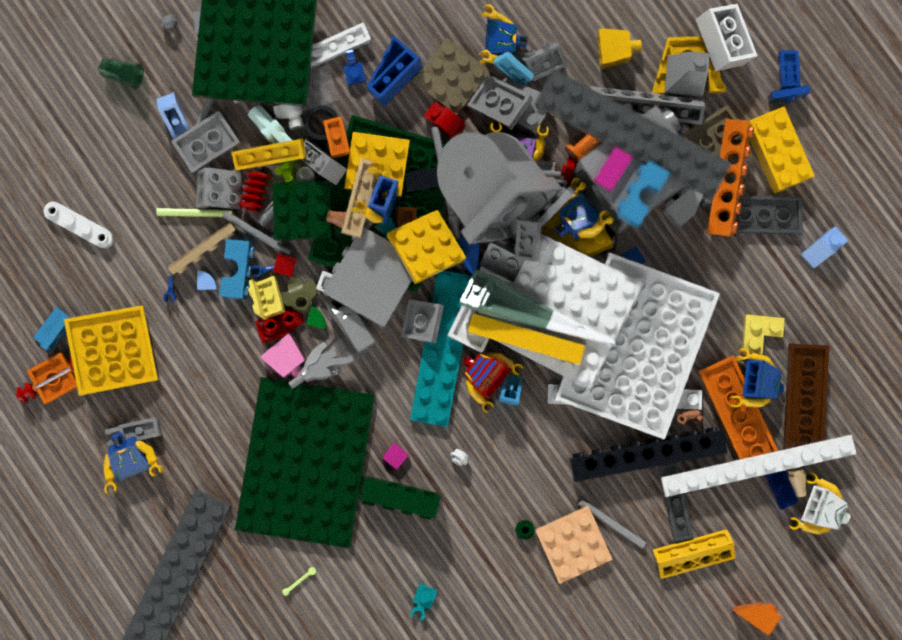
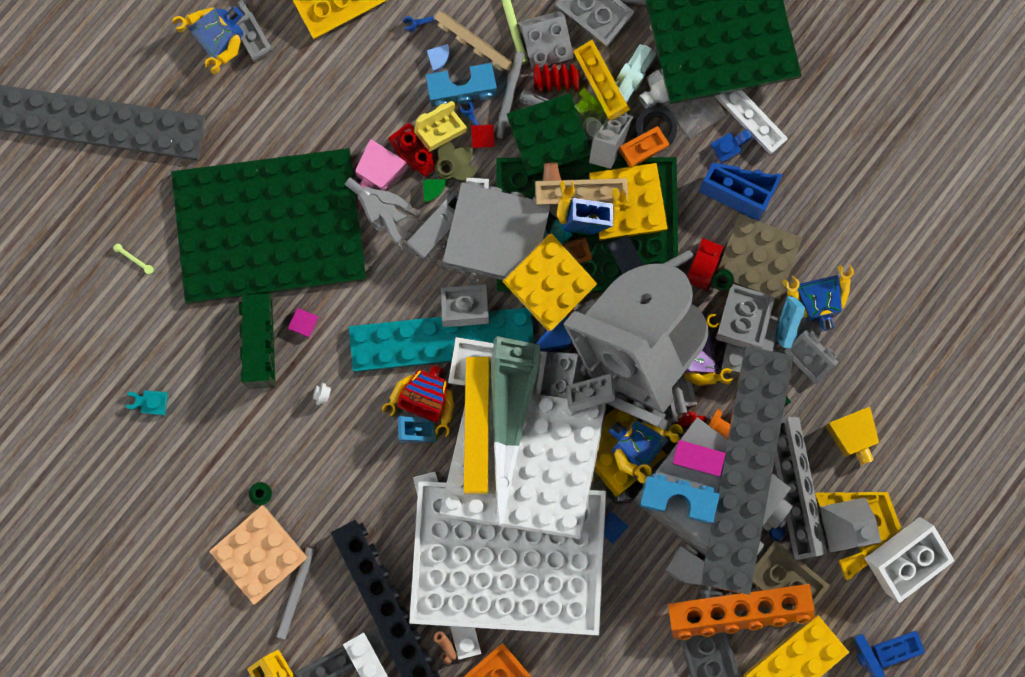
camera: 70 degrees right, 5 degrees down
(467, 109) = (718, 284): none -> dark green plate

